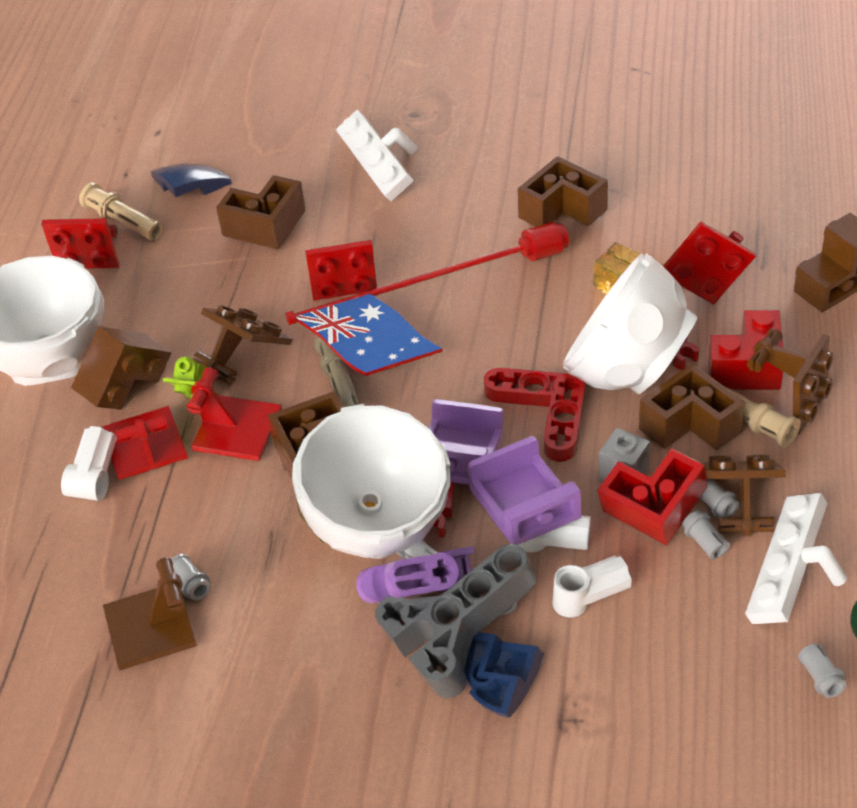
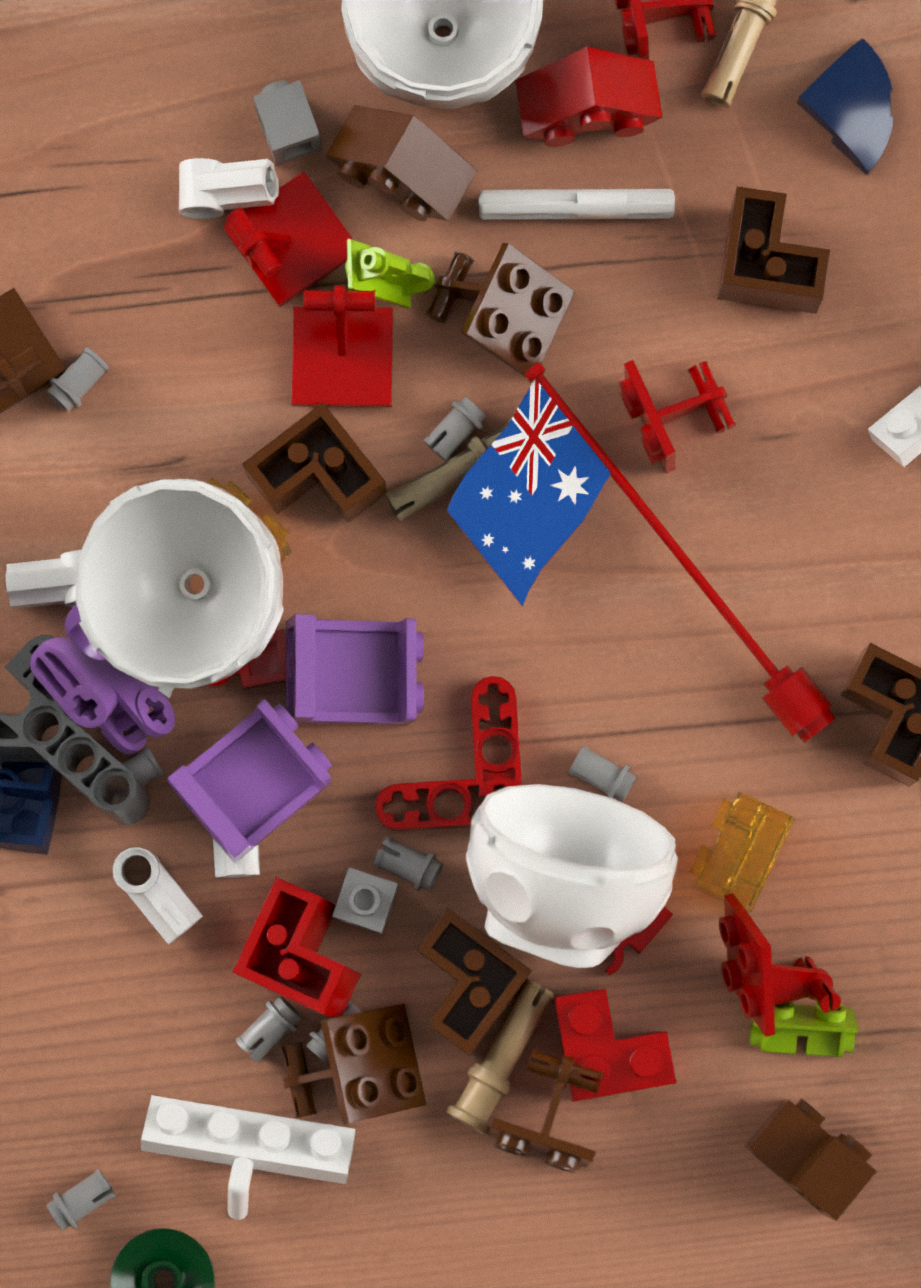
camera: 75 degrees right, 35 degrees up
(61, 427) = (287, 121): none -> light grey brick
(124, 273) = (588, 93): none -> red brick
(188, 301) = (577, 204): none -> white axle
(305, 369) = (455, 428): none -> light grey pin
(336, 604) = (43, 582): none -> white piece
(563, 337) = (603, 774): none -> light grey pin
(595, 443) = (409, 864): none -> light grey pin
(753, 277) = (824, 1032): none -> lime hinge

